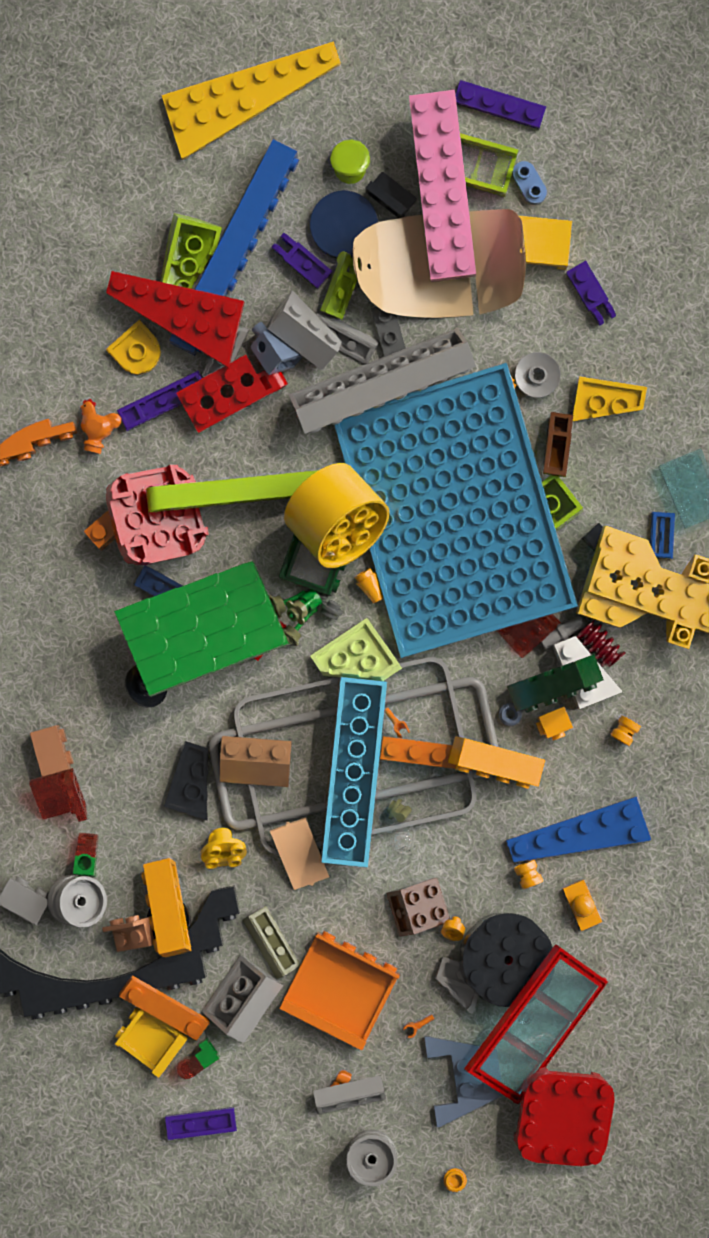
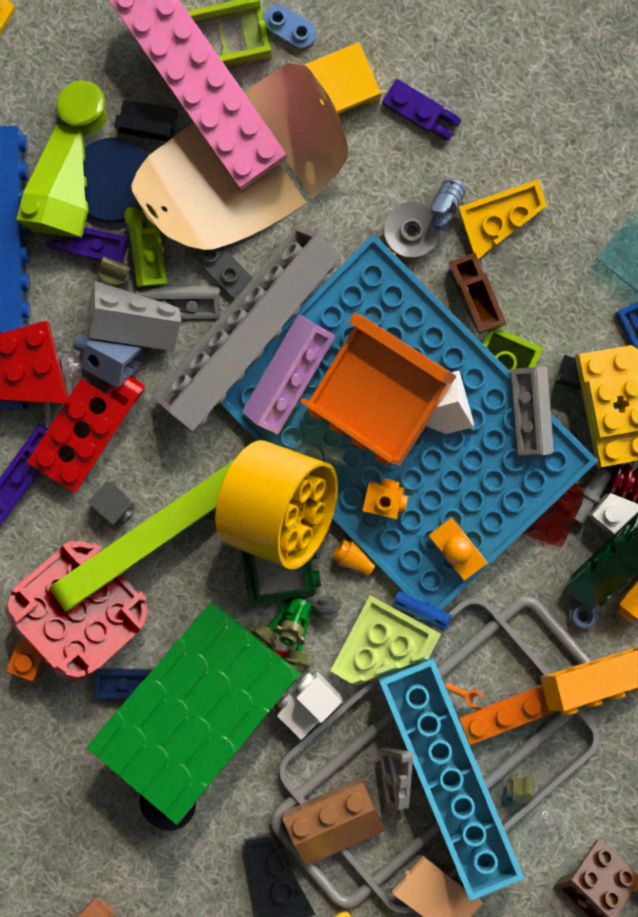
camera: 30 degrees left, 0 degrees up
(219, 455) = (112, 504): none -> dark grey brick
(243, 342) = (71, 366): none -> clear animal
(281, 671) = (310, 704): none -> white brick
(299, 212) = (56, 190): none -> lime wedge
(308, 291) = (112, 272): none -> olive plate
(316, 751) = (396, 775): none -> light grey wing
(393, 430) = (288, 374): none -> lavender panel
(397, 647) = (422, 611): none -> blue pin
(414, 553) = (385, 498): none -> light orange brick
(446, 616) = (458, 548): none -> light orange tile
(450, 475) = (379, 392): none -> orange panel
(489, 509) = (453, 411): none -> white slope
(550, 547) = (532, 411): none -> light grey slope
(572, 369) = (447, 202): none -> sand blue hinge

